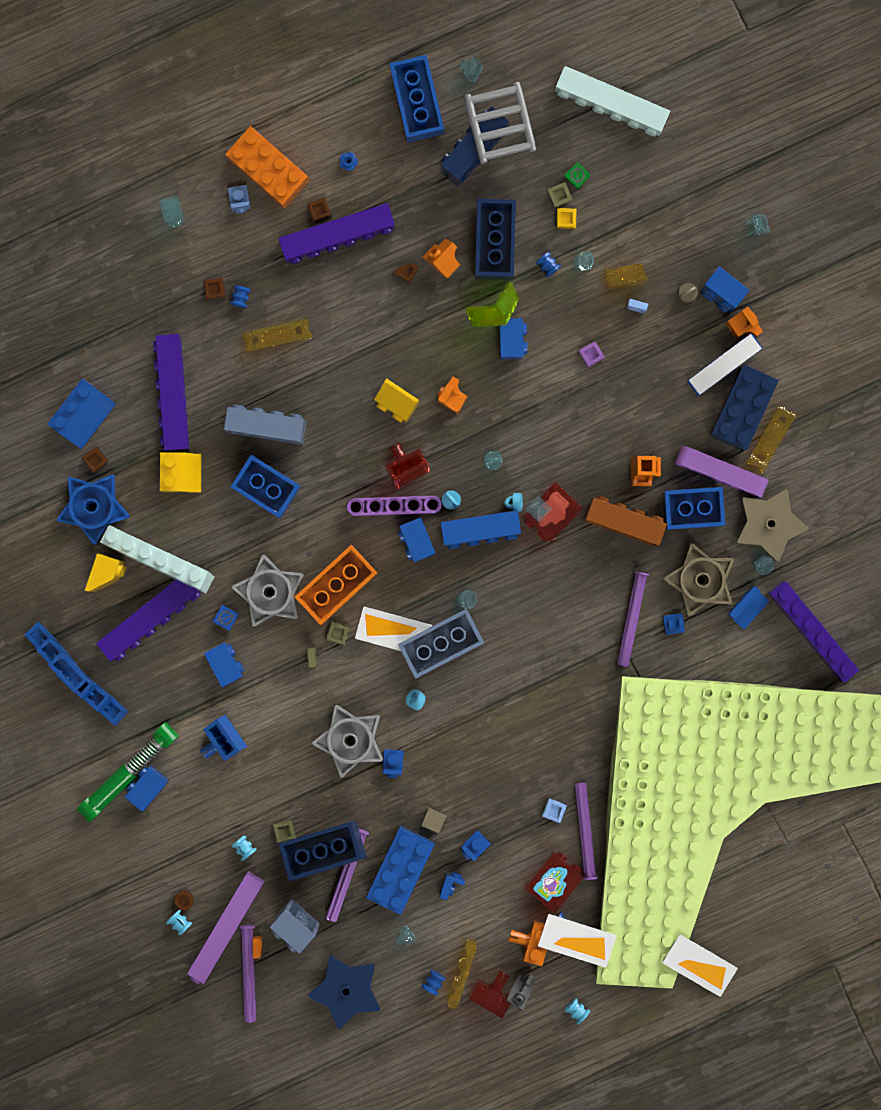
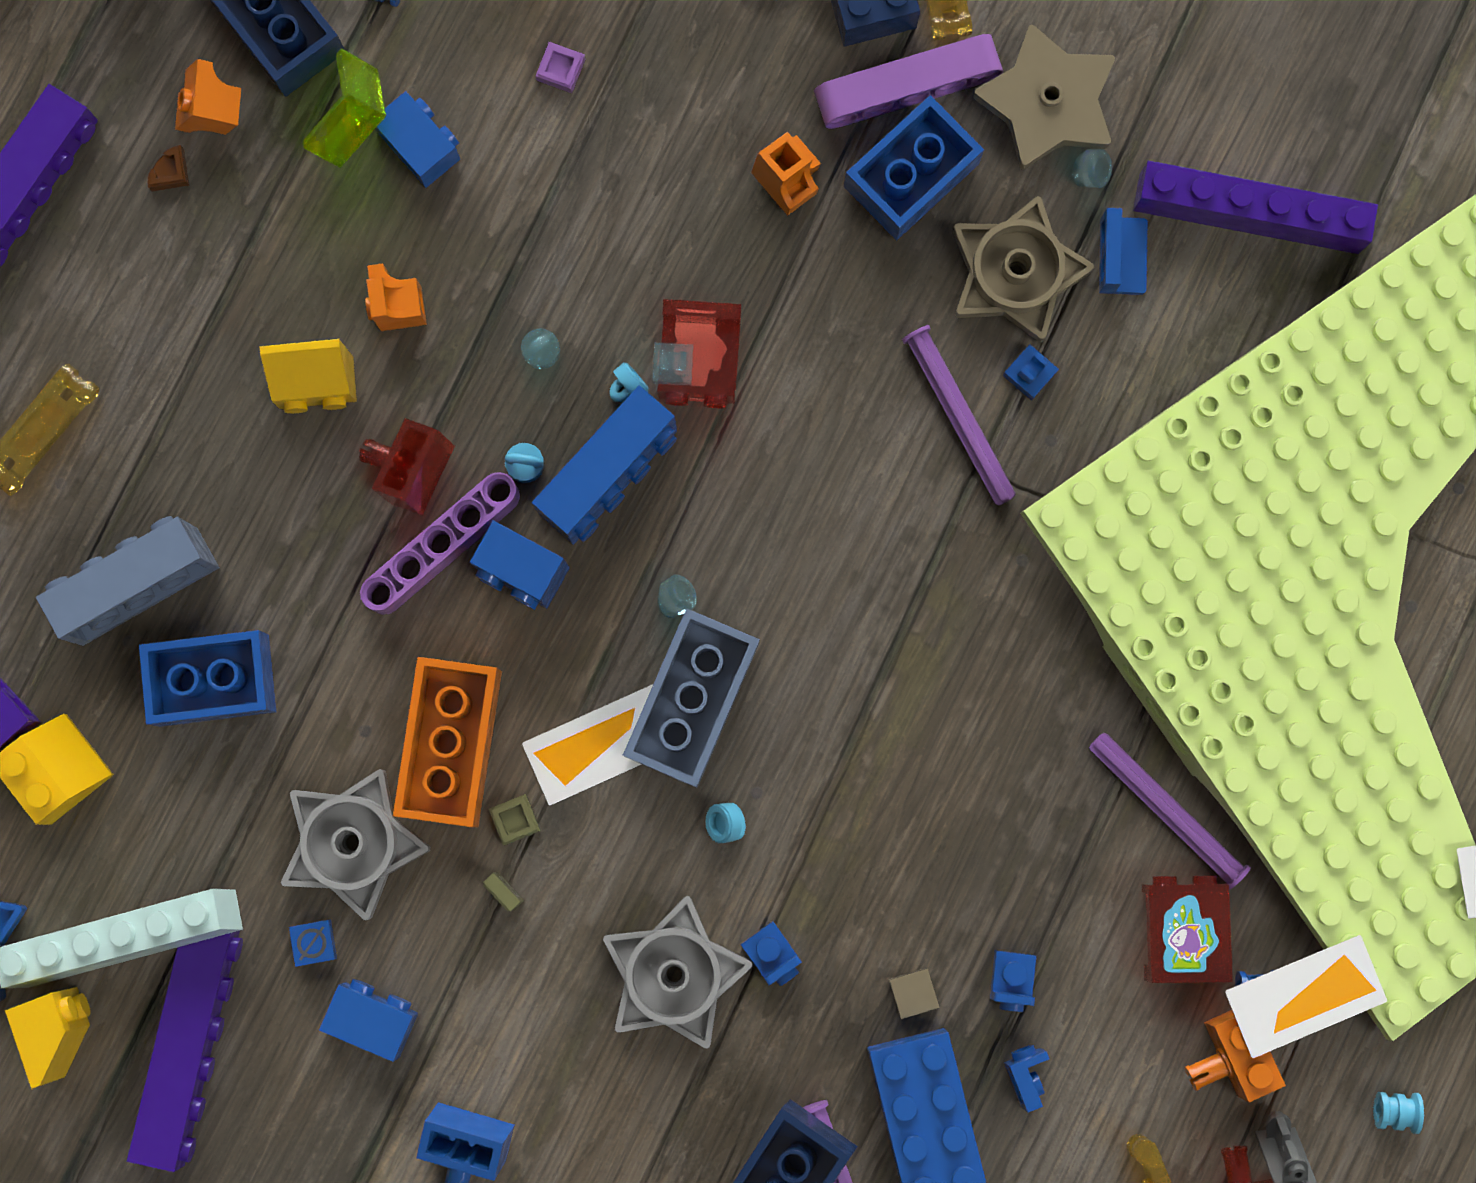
camera: 40 degrees left, 5 degrees down
(554, 810) = (1091, 817): light blue tile -> none
(625, 522) = (824, 271): dark orange brick -> none

